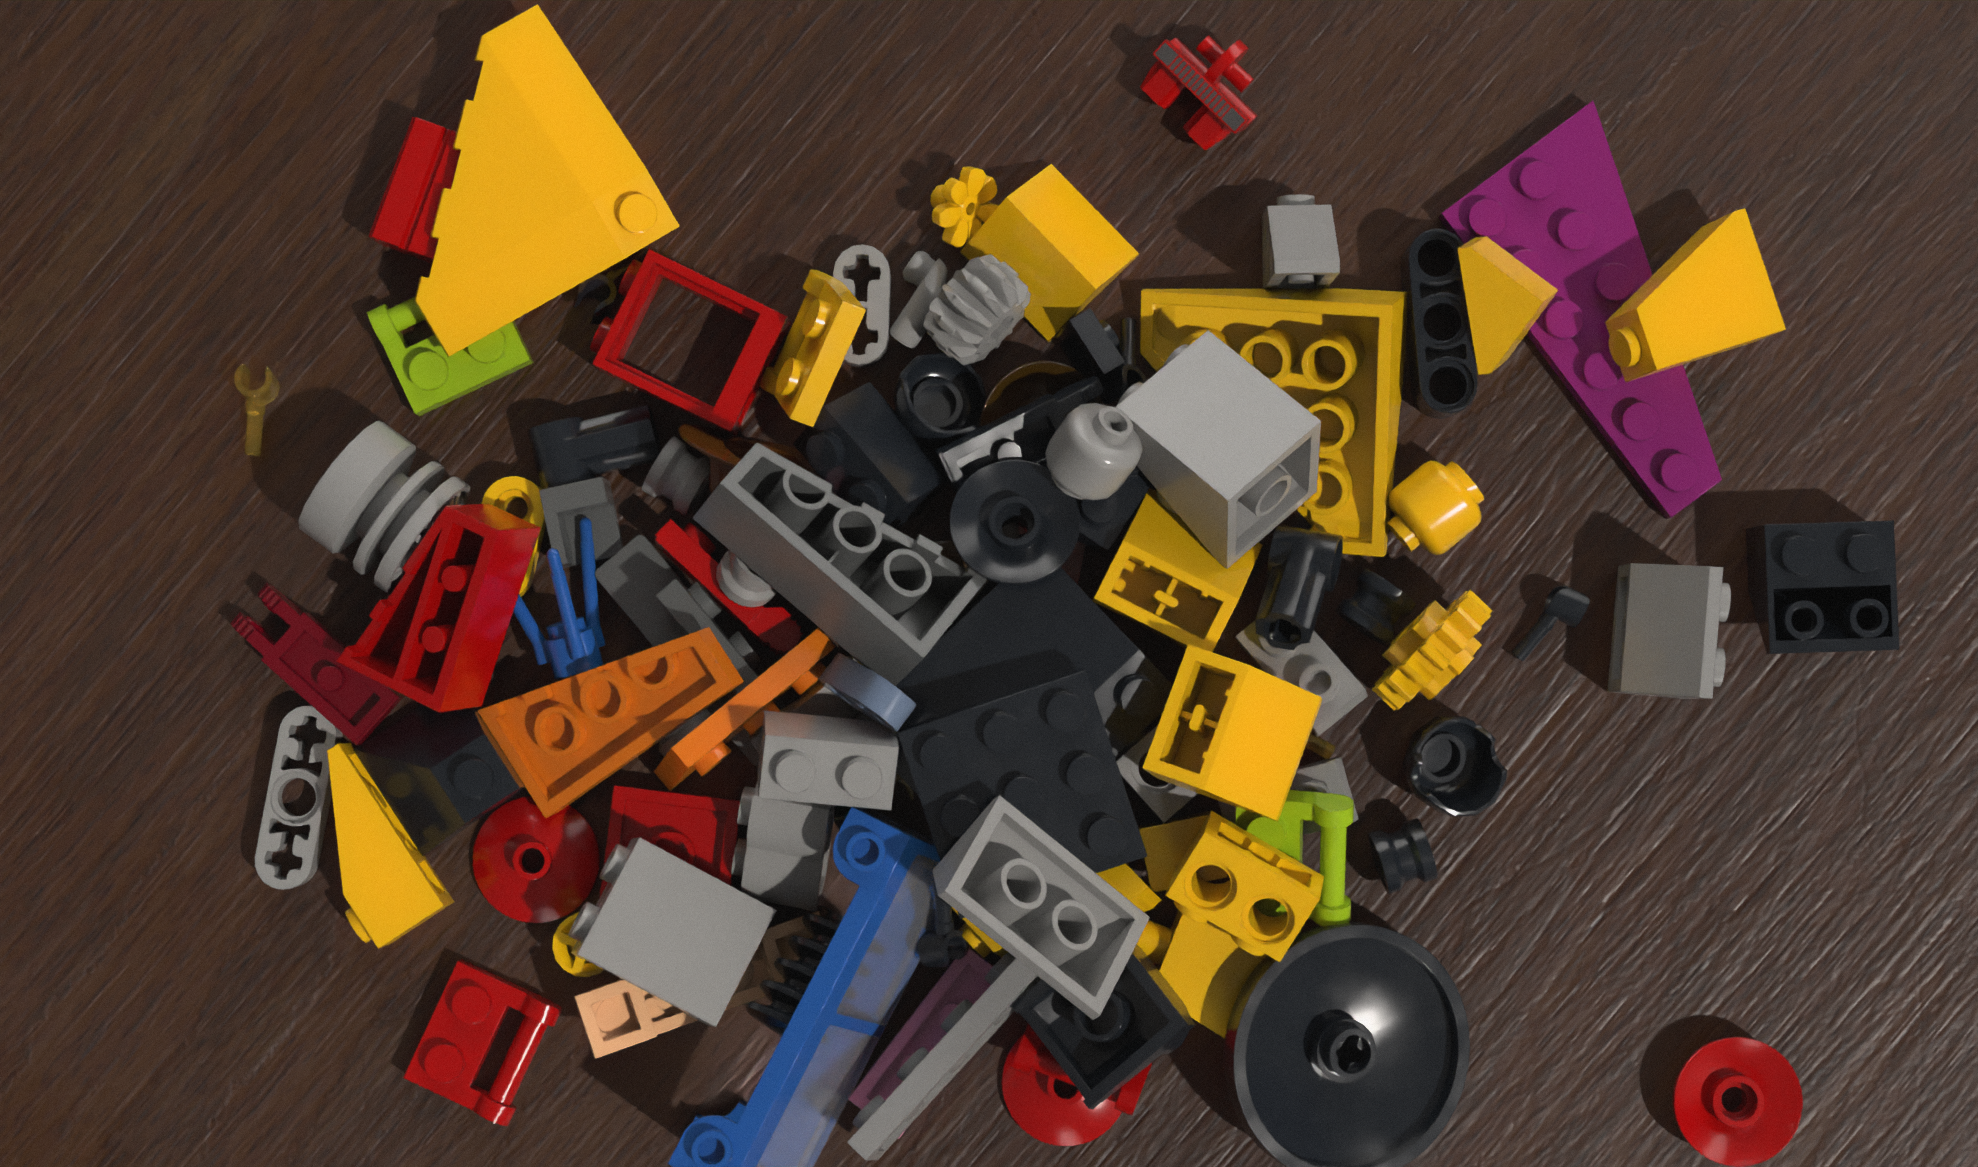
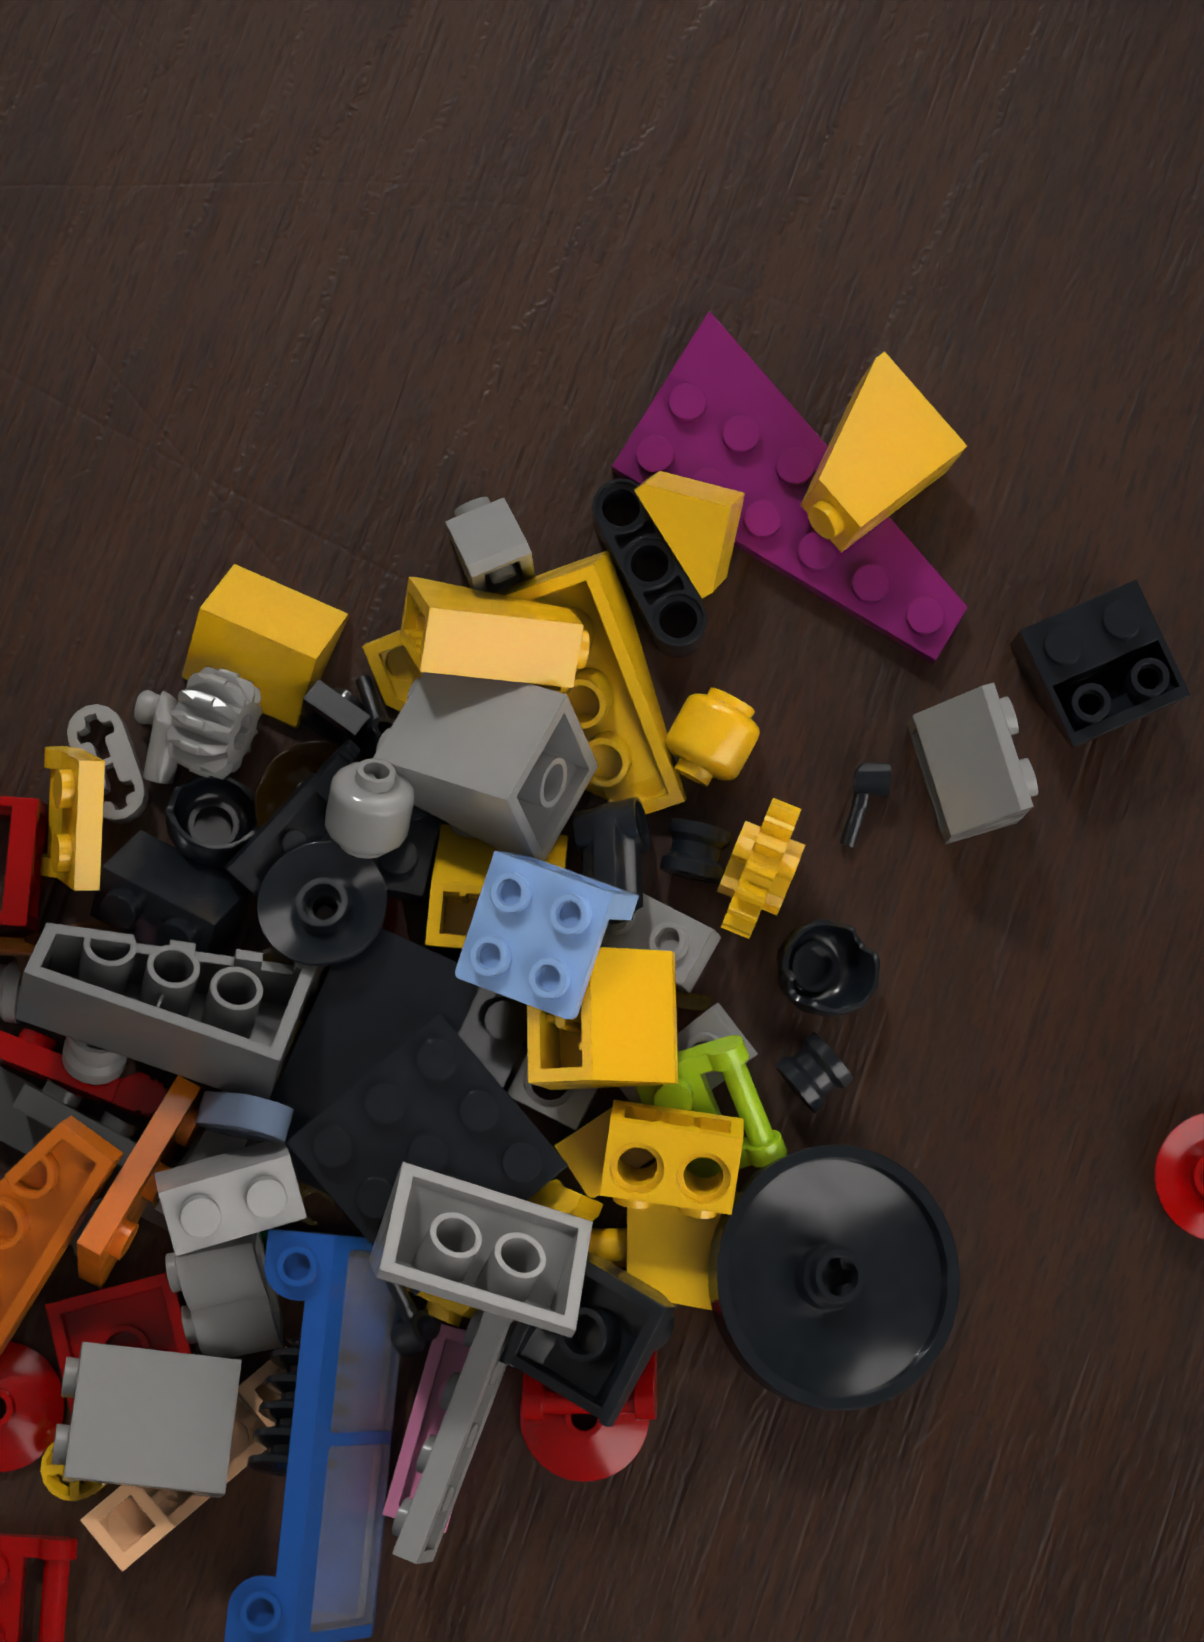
camera: 20 degrees left, 5 degrees down
(963, 205) = (165, 632): yellow plant -> none
(1182, 69) = (318, 431): red hips -> none
(1207, 633) = (539, 932): none -> light blue bracket
(1269, 333) = (491, 635): none -> yellow slope

